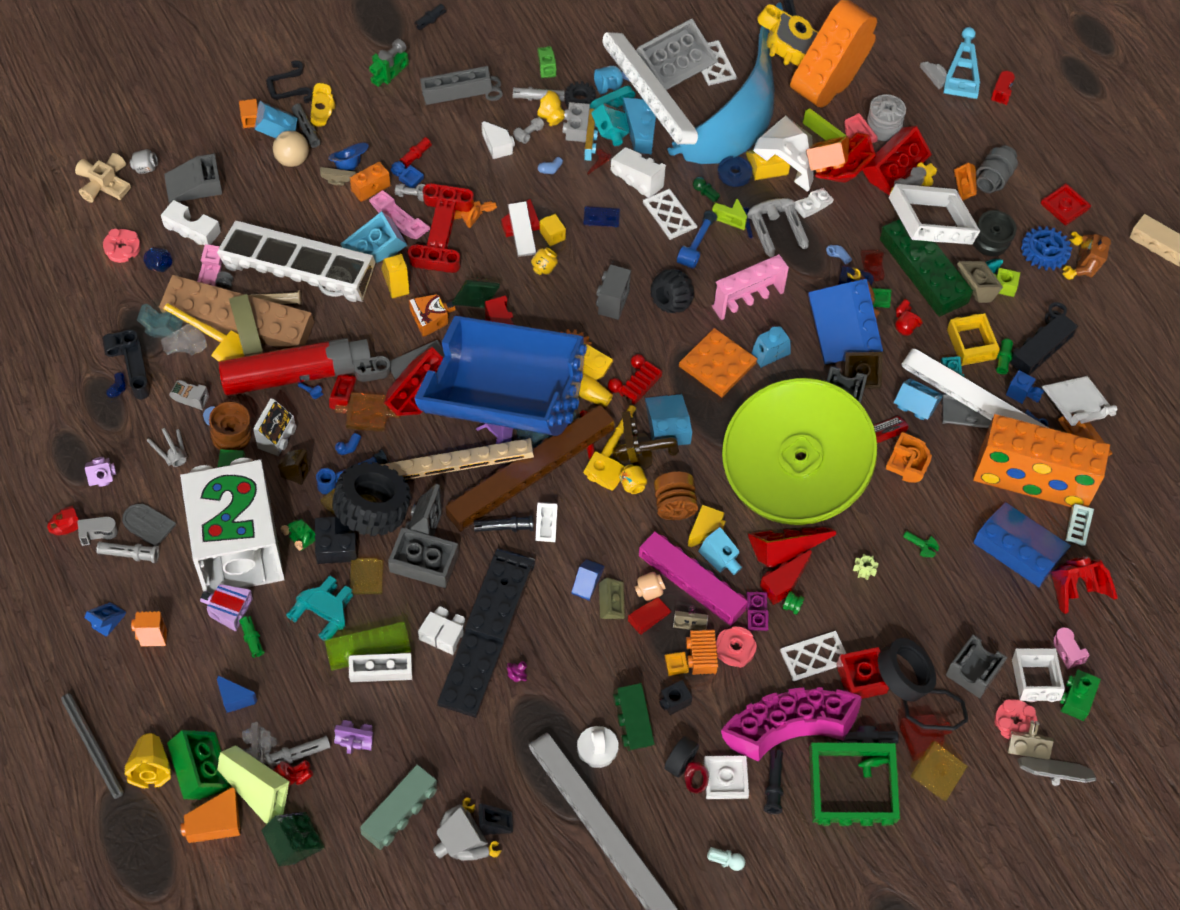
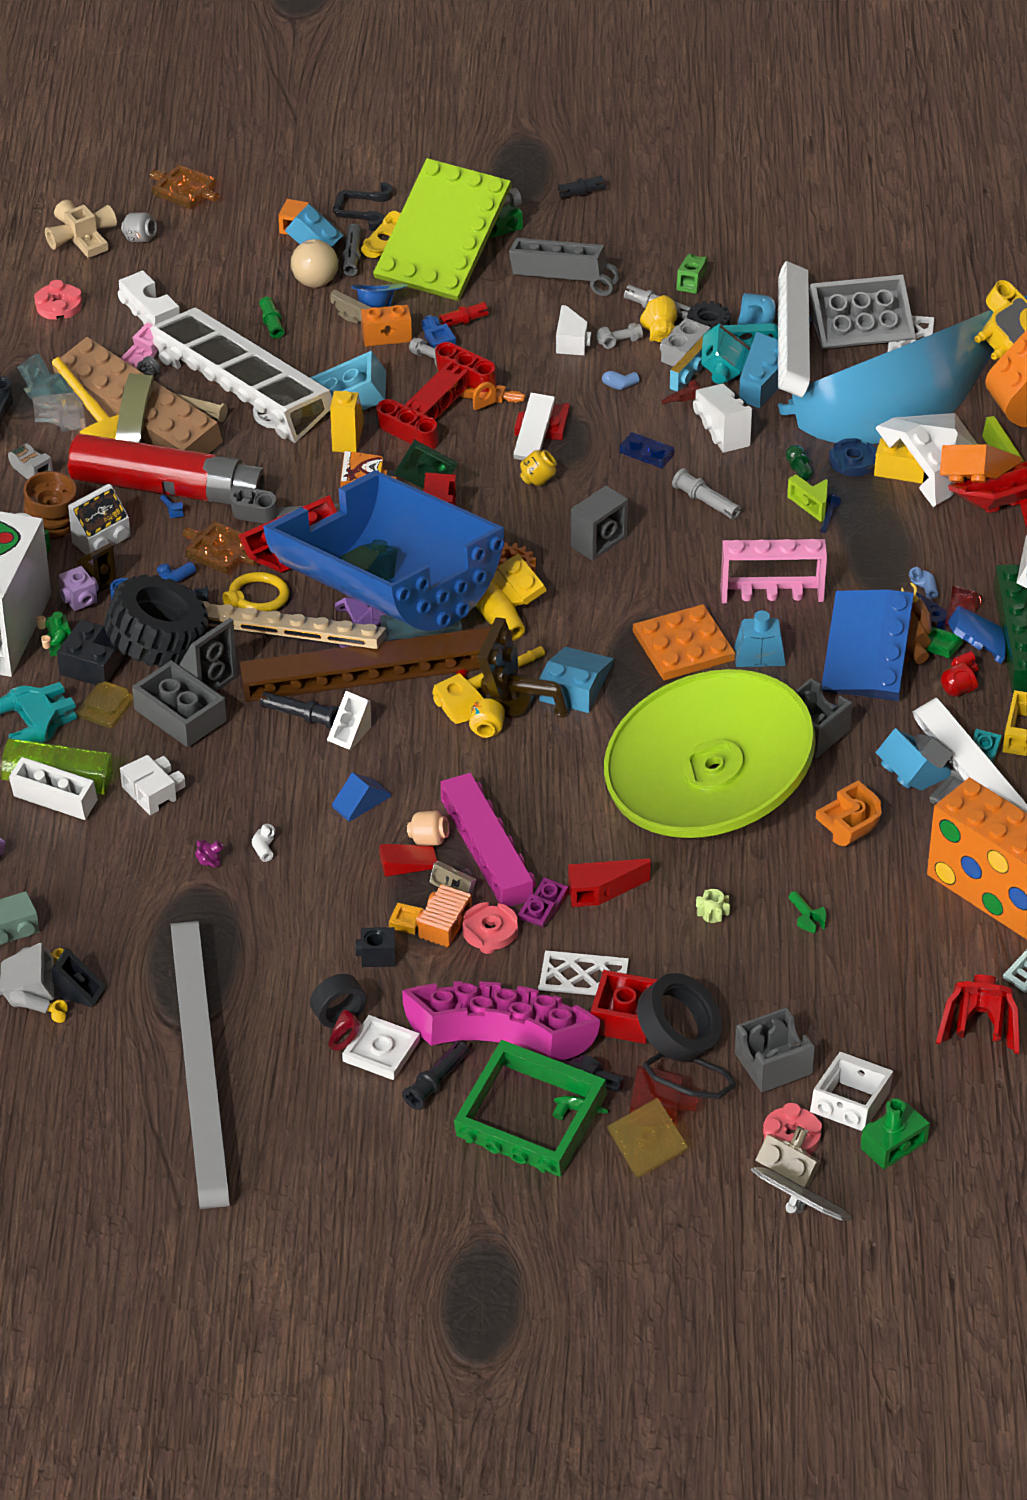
camera: 30 degrees right, 15 degrees down
(153, 114) = (184, 186): none -> clear orange plate
(157, 259) = (87, 324): clear blue head -> none
(194, 179) = (185, 261): dark grey slope -> none
(284, 203) = (271, 317): none -> green pin
(292, 489) = (78, 588): none -> lavender brick
(342, 391) = (205, 516): red slope -> none
(366, 89) = (442, 229): none -> lime plate
(403, 221) = (397, 375): bright pink slope -> none
(404, 451) = (236, 598): none -> yellow piece
(484, 390) = (374, 558): none -> slope
(486, 632) = (205, 802): black hinge -> none
(543, 642) = (262, 840): none -> white arm
(552, 230) = (573, 441): yellow brick -> none
(597, 746) = (251, 961): white tile -> none
(611, 599) = (376, 828): olive slope -> none
(633, 717) = (310, 941): dark green wedge -> none
(638, 384) = (567, 630): red gear -> none
(655, 236) = (697, 489): none -> light grey pin
(672, 291) = (677, 548): black wheel -> none
(675, 496) = (522, 747): dark orange wheel -> none
(685, 216) = (734, 456): white window -> none
(688, 255) = (728, 523): blue piece -> none
(706, 523) = (540, 795): yellow slope -> none
(720, 552) = (541, 829): medium azure torso -> none
(735, 861) = (332, 1135): light aqua axle -> none
(771, 208) = (867, 507): light grey piece -> none
(781, 547) = (616, 845): red wedge -> none
(793, 603) = (593, 908): green wheel -> none
(813, 203) = (938, 520): white slope -> none
(865, 363) = (869, 704): dark brown slope -> none
(890, 428) = (838, 780): slope -> none
(899, 281) = (978, 632): none -> blue slope
(935, 390) = (933, 750): none -> dark grey slope
(1021, 544) = (932, 952): blue slope -> none
(1068, 648) = (916, 1087): bright pink leg -> none

